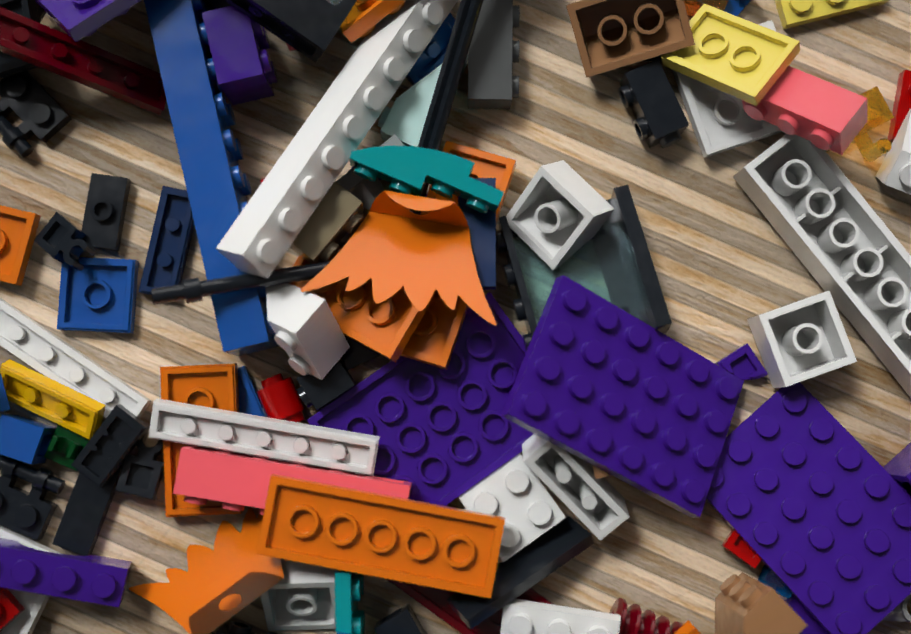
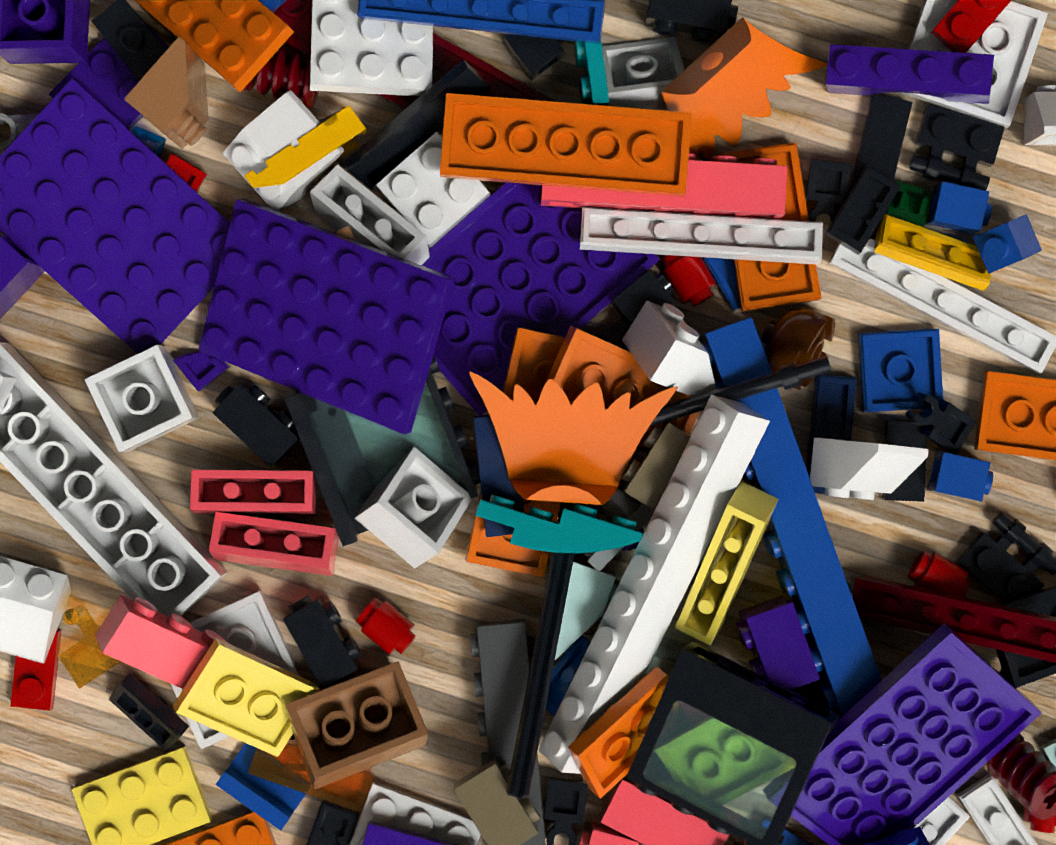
camera: 175 degrees right, 5 degrees up
(55, 191) = (960, 476): none -> blue brick
(86, 104) = (939, 574): none -> red brick
(141, 206) = (861, 467): none -> white slope
(187, 330) = (797, 338): none -> reddish brown cylinder
(274, 128) = (726, 563): none -> light yellow brick
(593, 111) = (386, 626): none -> red brick
(606, 564) = (312, 147): none -> yellow piece
(650, 558) = (269, 134): none -> white slope
(691, 194) = (274, 543): none -> coral brick
(697, 308) = (255, 423): none -> black brick
(706, 242) = (253, 492): none -> coral brick
(816, 58) = (148, 712): none -> black plate

